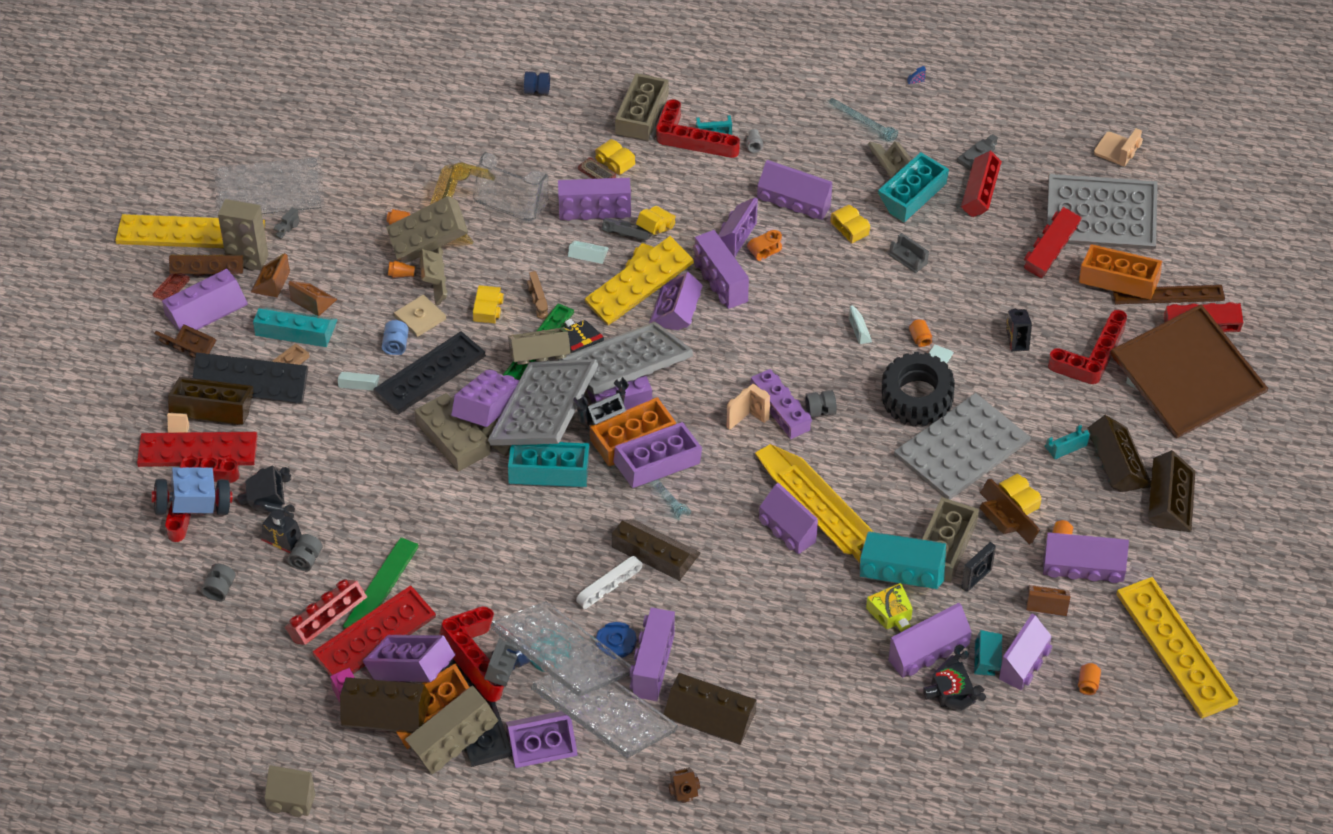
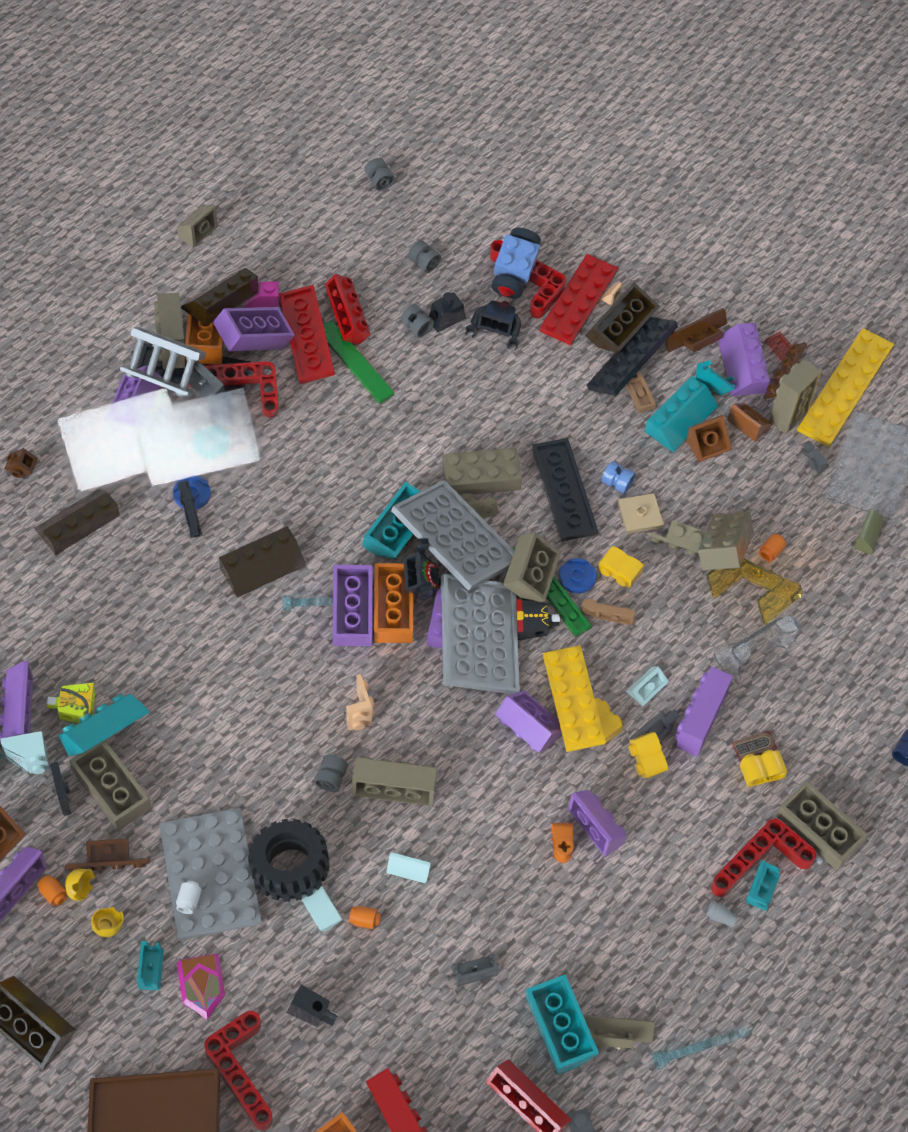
camera: 115 degrees right, 10 degrees up
(122, 672) = (379, 174): none -> dark grey wheel
(243, 310) = (712, 379): none -> teal hinge
(344, 168) = (870, 532): none -> olive brick
(357, 381) = (589, 435): light aqua slope -> none
(399, 269) = (705, 517): orange cone -> none
(484, 398) = (494, 499): medium lavender brick -> none
(493, 696) = (176, 348): none -> light grey fence
(510, 326) = (572, 578): none -> blue tile
(609, 582) = (248, 510): white beam -> none
(632, 628) = (187, 501): none -> black pin
(653, 653) = (149, 498): medium lavender brick -> none
(721, 269) = (545, 772): medium lavender brick -> none
(783, 406) = (354, 741): medium lavender brick -> none
(788, 519) = (216, 672): medium lavender slope -> none
(795, 190) = (617, 903): medium lavender slope -> none
(799, 355) = (394, 781): none -> dark tan brick
(804, 484) = (228, 707): yellow hinge -> none
(850, 223) = (548, 938): yellow brick -> none
(968, 596) = (27, 752): none -> light aqua slope
(998, 435) = (188, 897): none -> white brick
(1019, 491) = (118, 882): yellow brick -> none
(1043, 515) = (78, 884): none -> yellow hair
(1051, 409) = (201, 983): none -> tile
(1056, 479) = (100, 921): none -> yellow hair
(1118, 455) = (101, 1004): dark brown slope -> none

